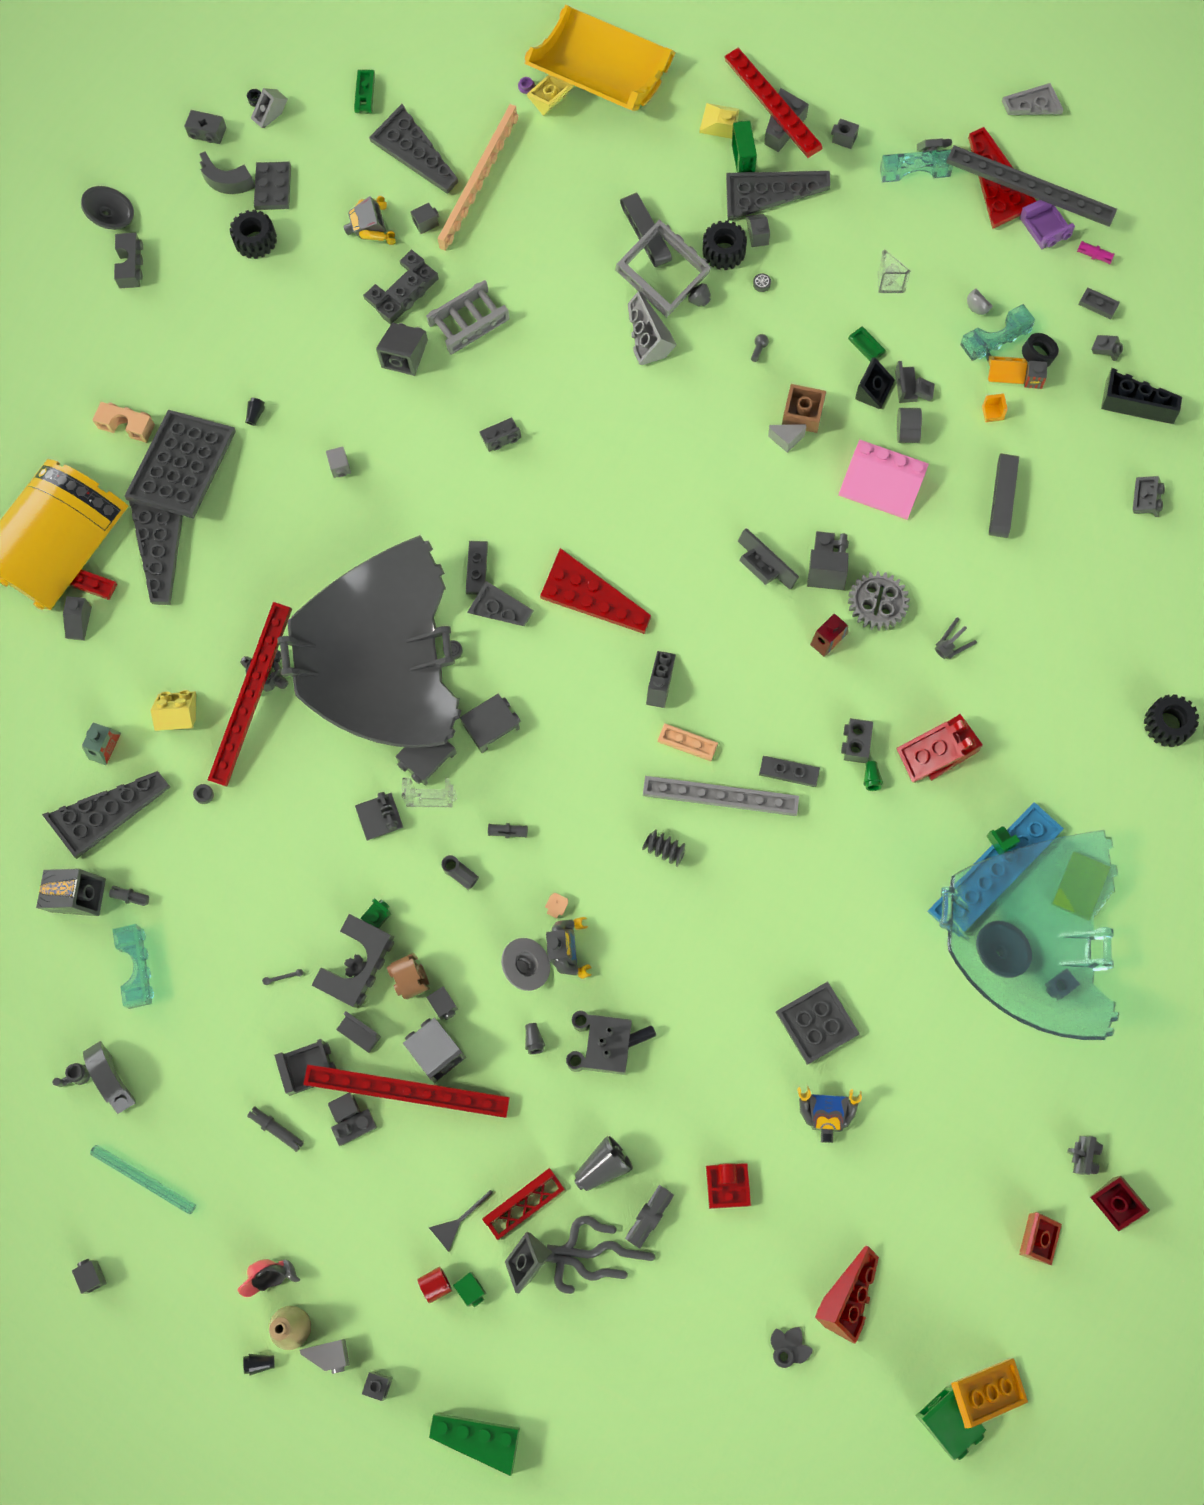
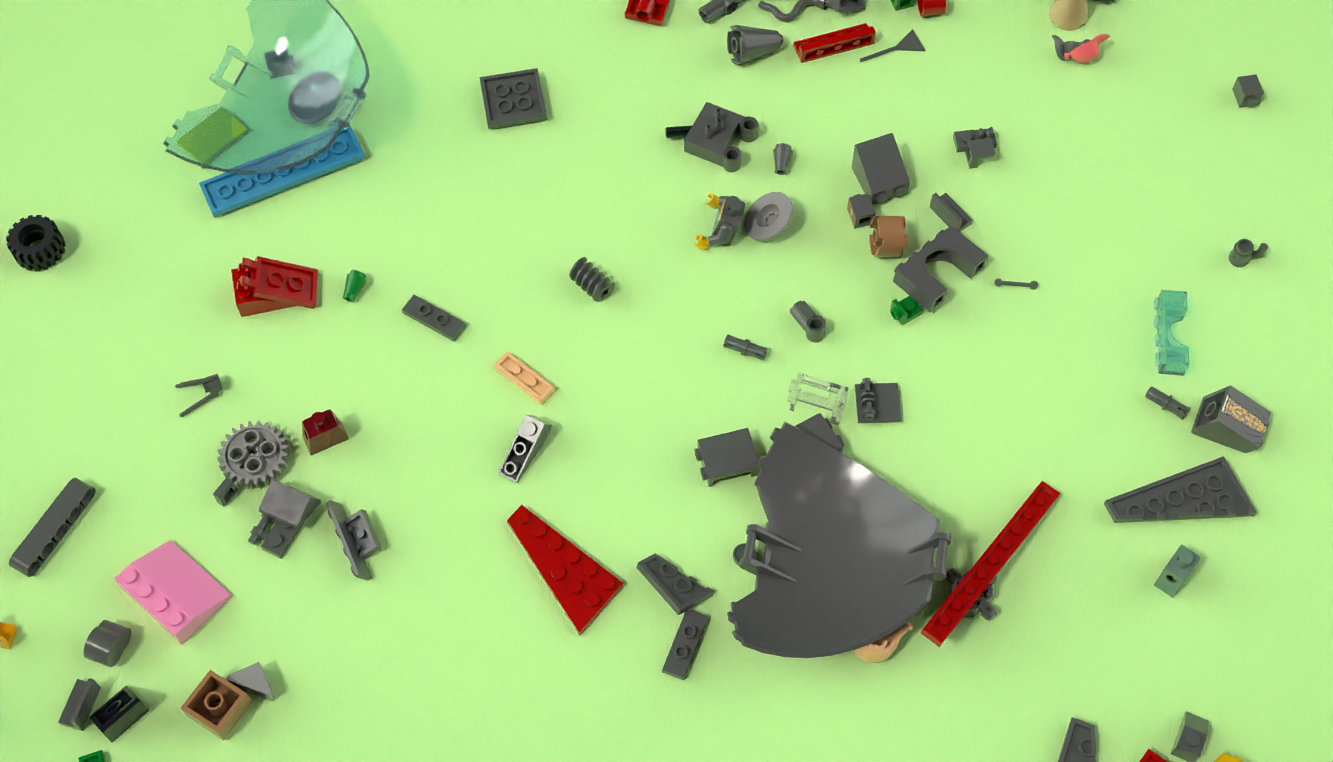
camera: 165 degrees left, 10 degrees down
(106, 1079) = (1215, 239): dark grey arch -> none
(143, 1179) = (1187, 154): clear light blue axle -> none
(174, 710) = (1085, 583): light yellow slope -> none
(203, 794) = (1067, 485): dark grey tile -> none
(268, 1123) = (1056, 162): dark grey pin -> none
(293, 1065) = (1010, 198): dark grey panel -> none
(354, 966) = (939, 268): dark grey plant -> none
(406, 1091) = (920, 144): red plate -> none
(556, 905) = (722, 261): light nougat piece -> none
(721, 796) = (514, 313): light grey plate -> none
(828, 1112) = (535, 29): torso -> none
(861, 741) = (346, 319): dark grey brick -> none
(884, 563) = (225, 492): none -> dark grey tile
(924, 389) = (63, 687): dark grey tile -> none
(1002, 840) = (261, 183): green panel -> none

